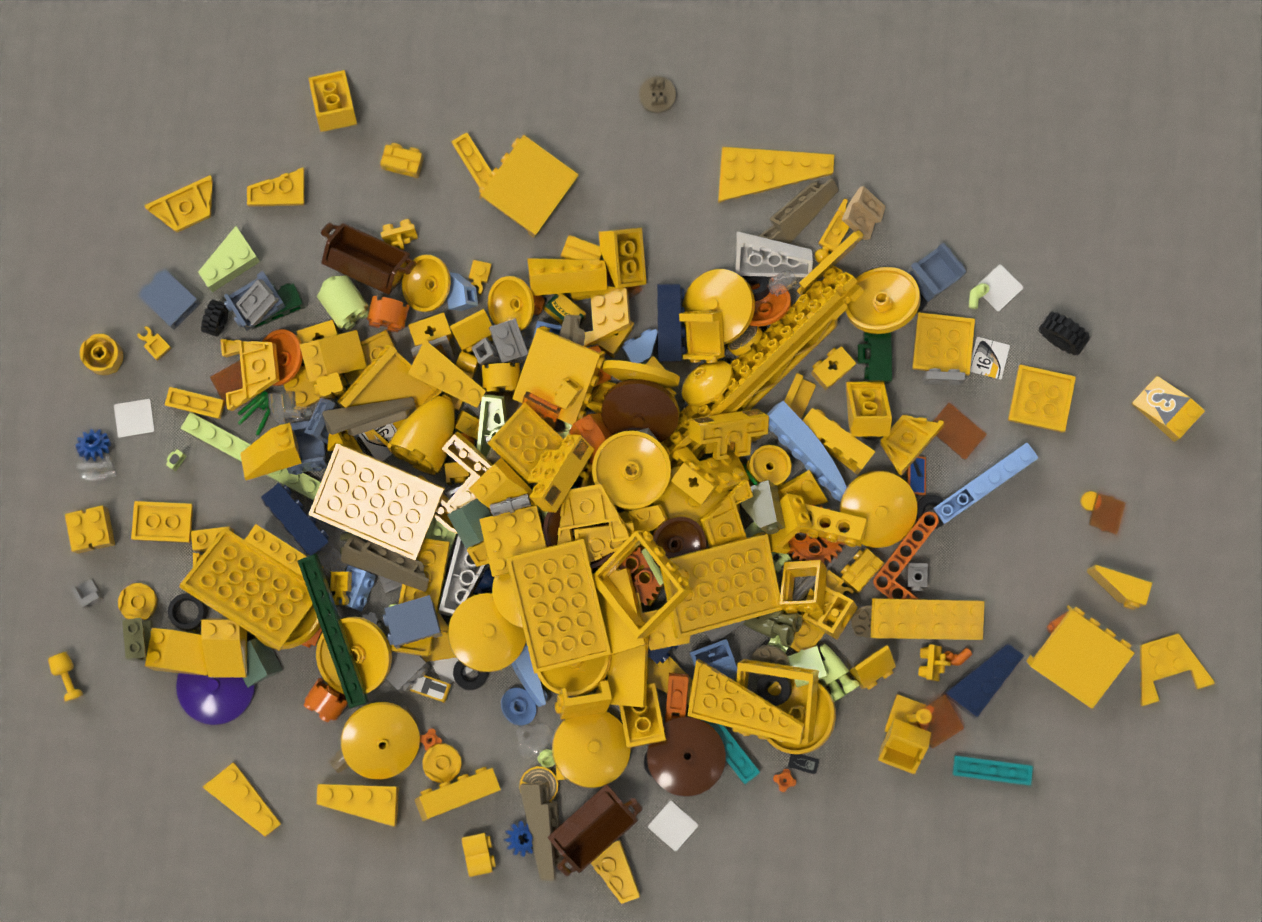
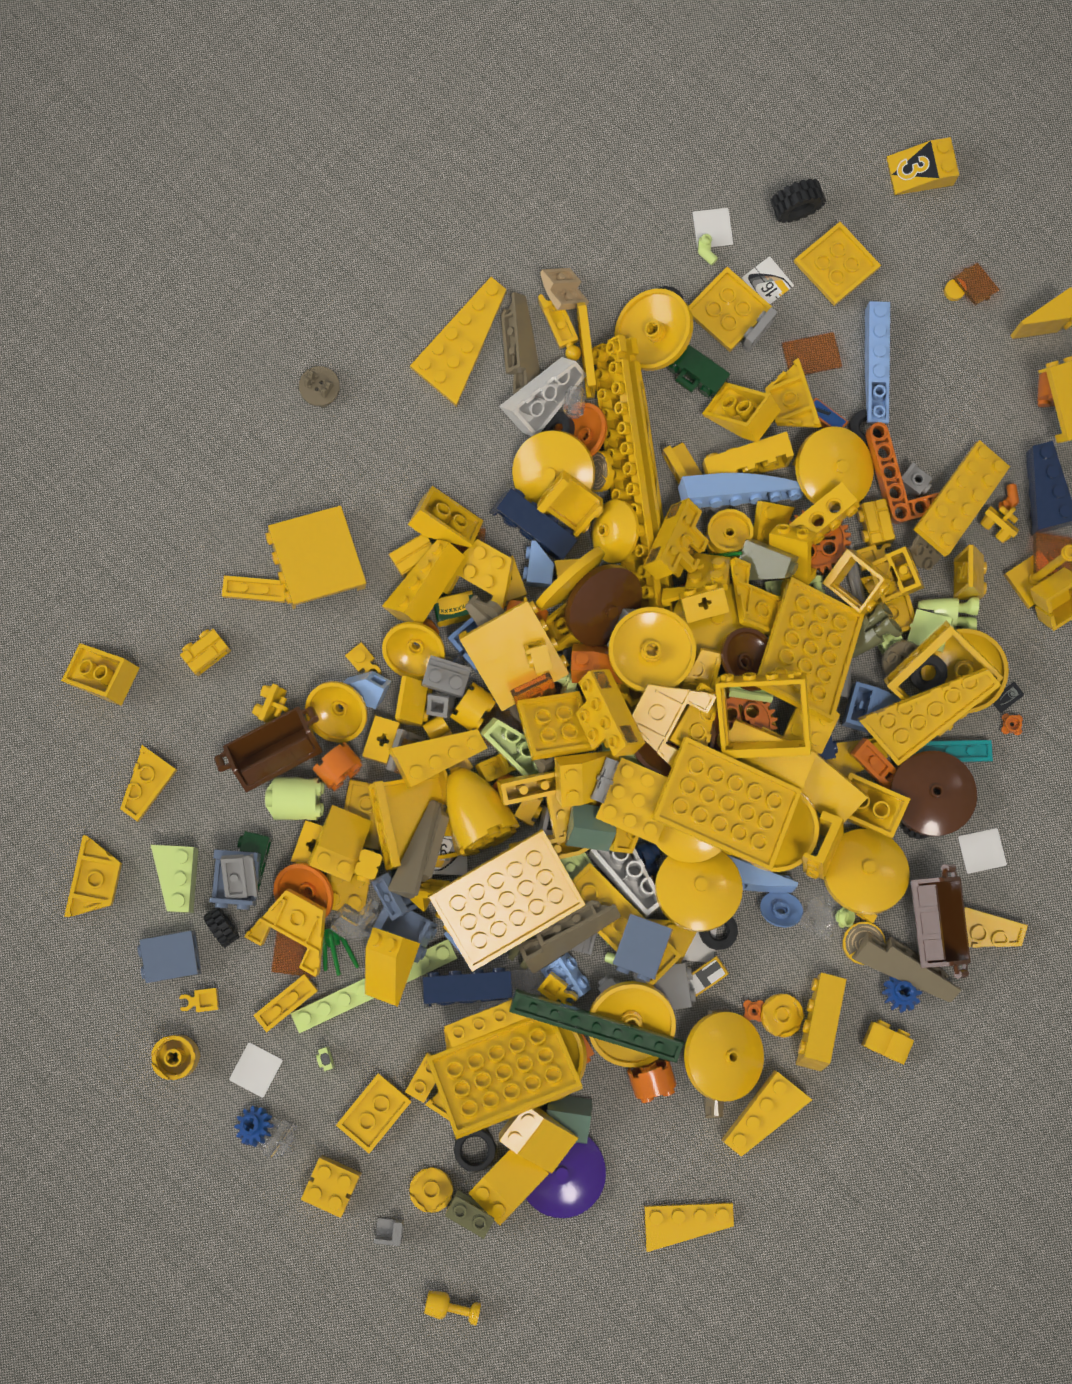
camera: 55 degrees left, 0 degrees up
(827, 377) = (679, 404): yellow brick -> none
(936, 272) = (661, 266): sand blue panel -> none

